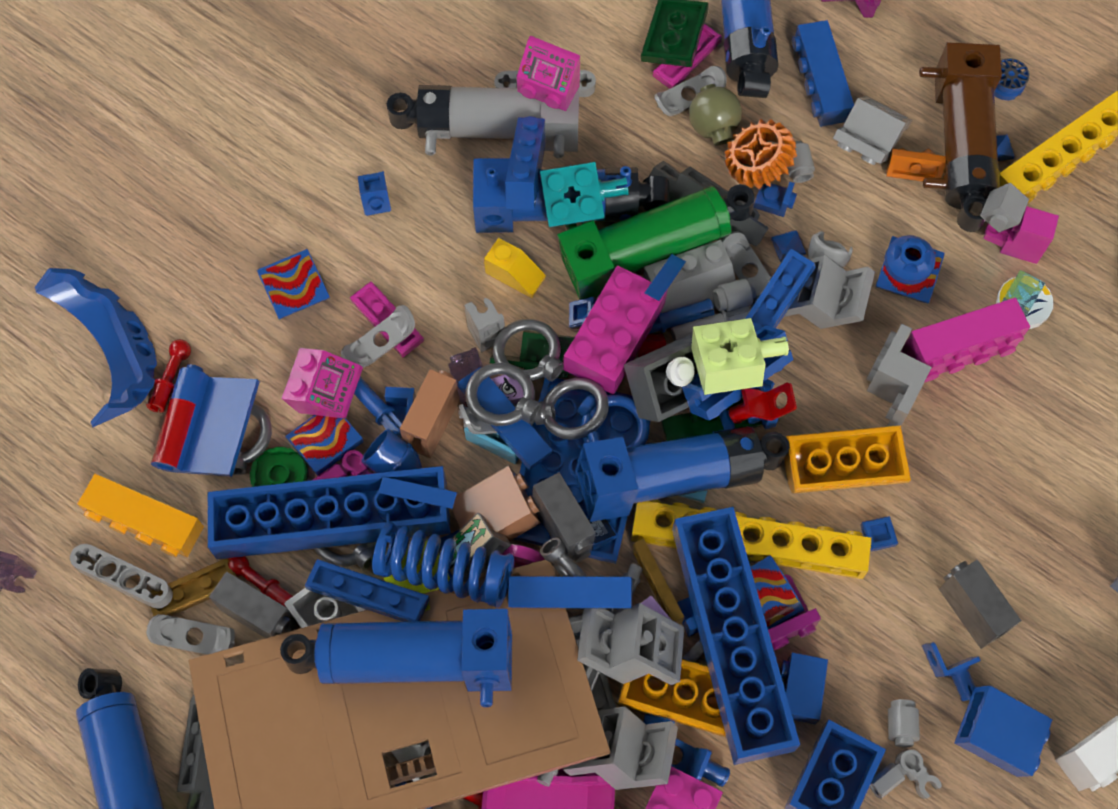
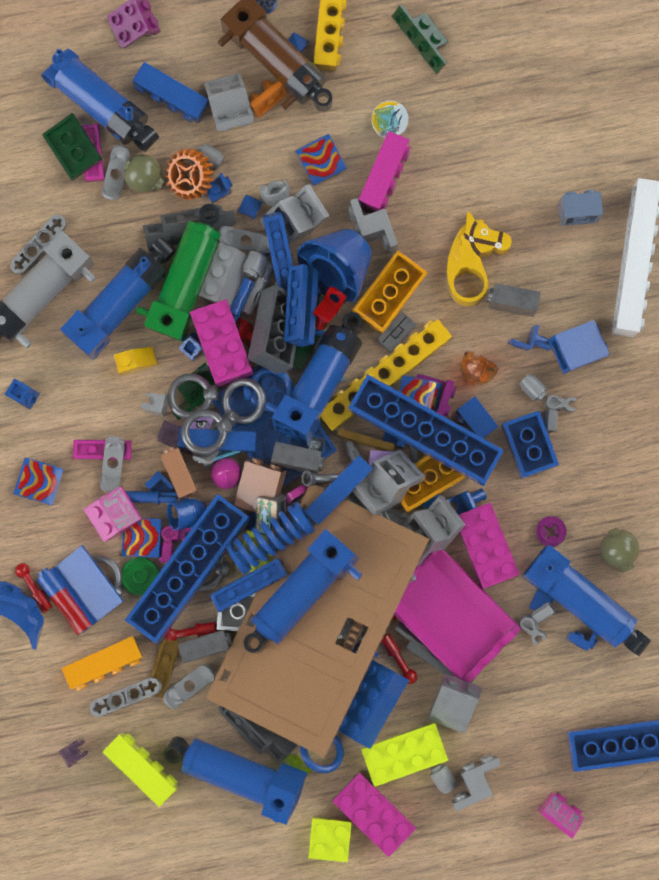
camera: 45 degrees left, 15 degrees up
(43, 664) = (141, 769): none -> neon yellow brick
(417, 492) = (220, 518): blue sticker -> none
(475, 462) = (226, 473): none -> dark pink helmet
(525, 163) = (90, 306): blue brick -> none
(548, 74) = (51, 249): dark pink slope -> none
(592, 191) = (138, 289): teal brick -> none
(665, 277) = (218, 293): blue sticker -> none
(680, 371) = (278, 336): white plate -> none
(732, 355) = (291, 296): yellowish green brick -> none
(811, 509) = (396, 332): none -> flat silver tile
(828, 371) = (341, 262): none -> blue cone
(859, 635) = (477, 369): none -> clear orange cylinder
(880, 532) = (437, 310): blue tile -> none
(902, 268) = (316, 166): blue piece -> none
(977, 504) = (470, 245): none -> yellow animal
(1004, 207) = (337, 85): light grey brick -> none
(1029, 238) = (357, 86): dark pink hinge -> none

